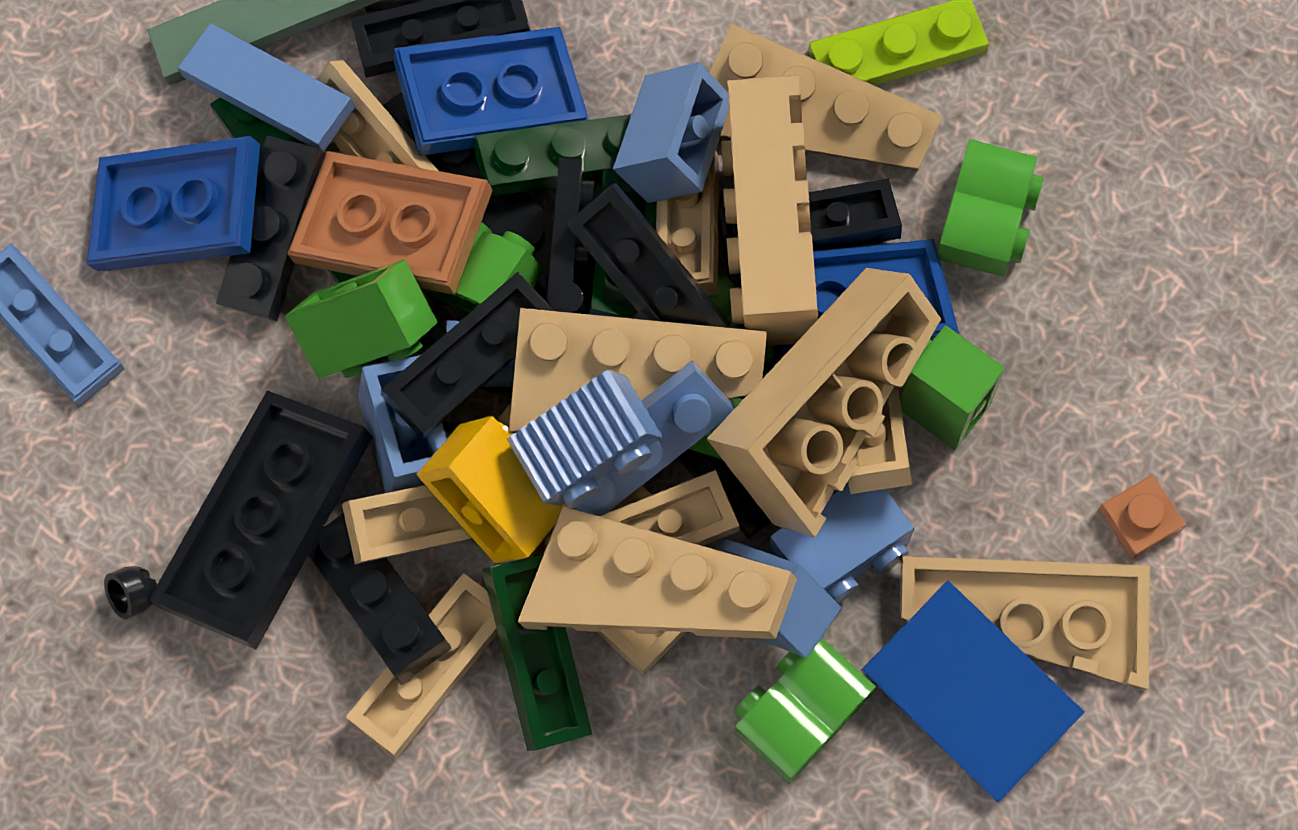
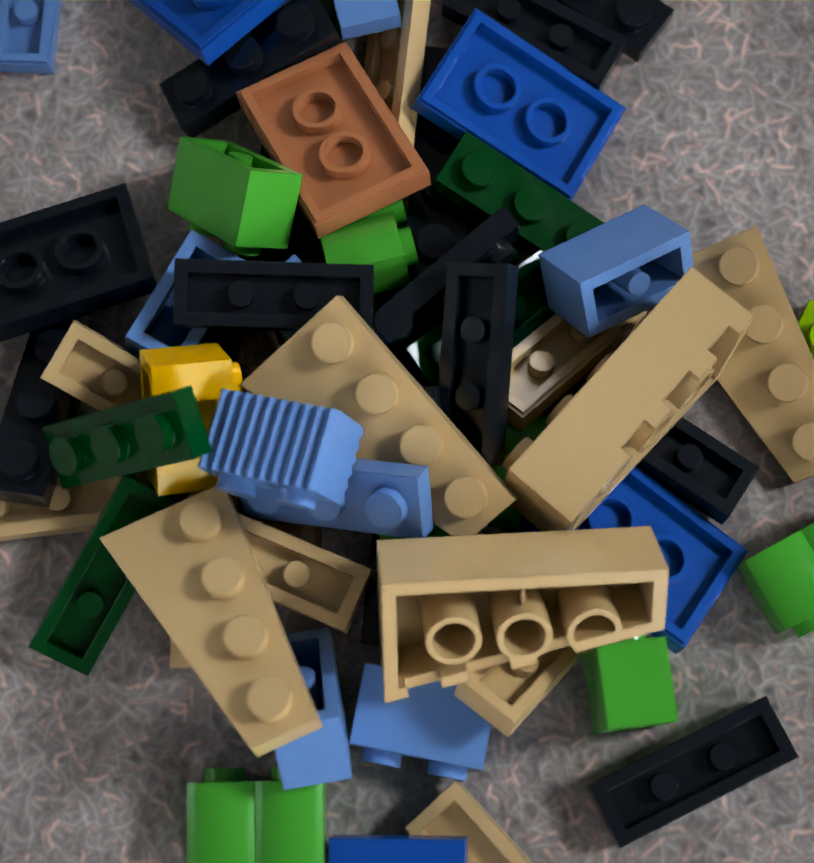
camera: 45 degrees right, 5 degrees up
(471, 536) = (128, 438): none -> dark green plate
(1040, 409) = (691, 772): none -> black plate

